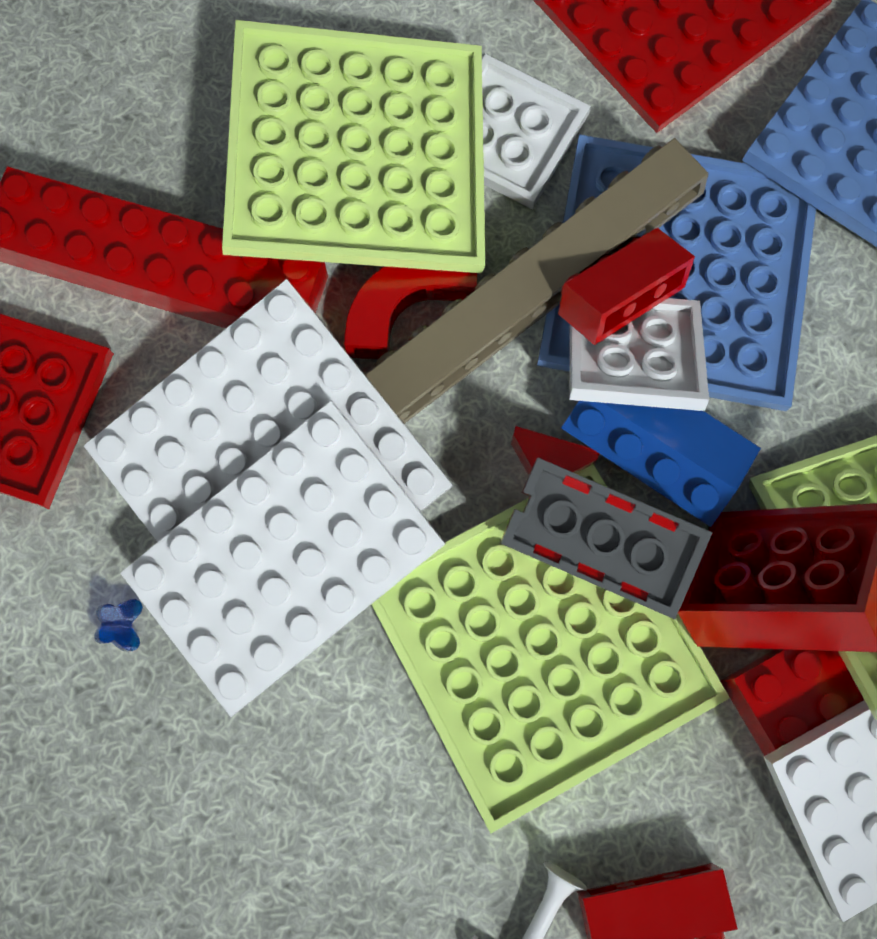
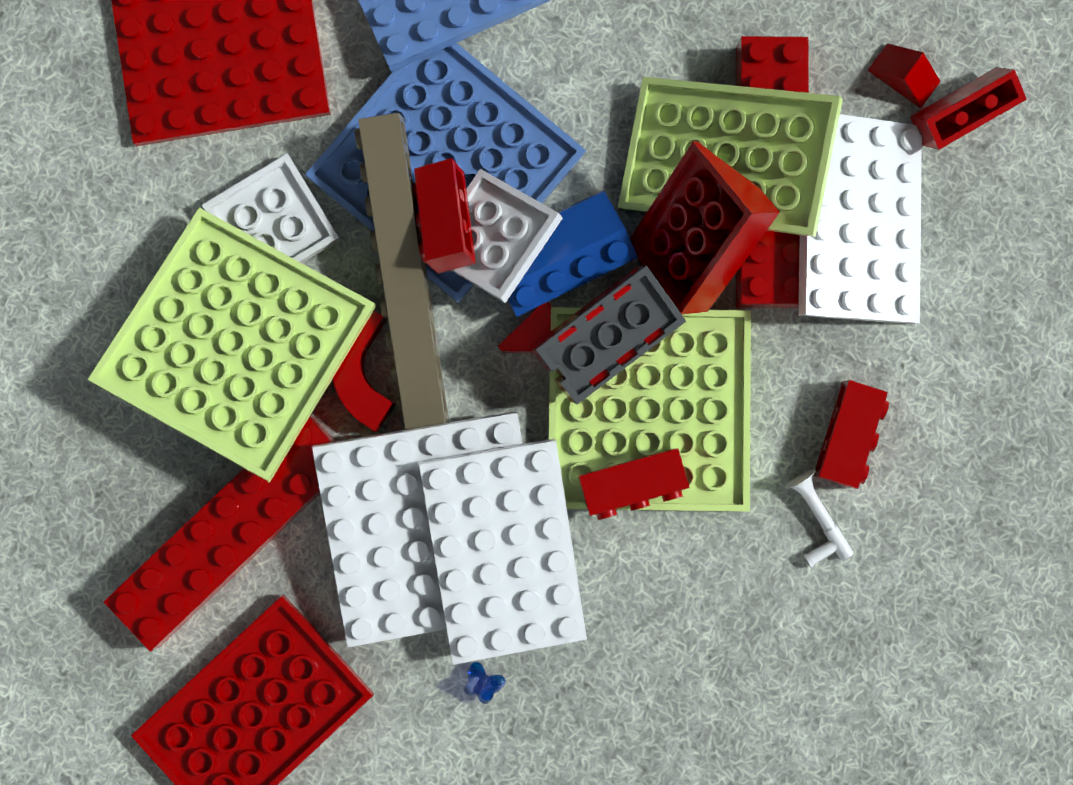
camera: 65 degrees left, 10 degrees up
(446, 668) = (634, 483): none -> red brick

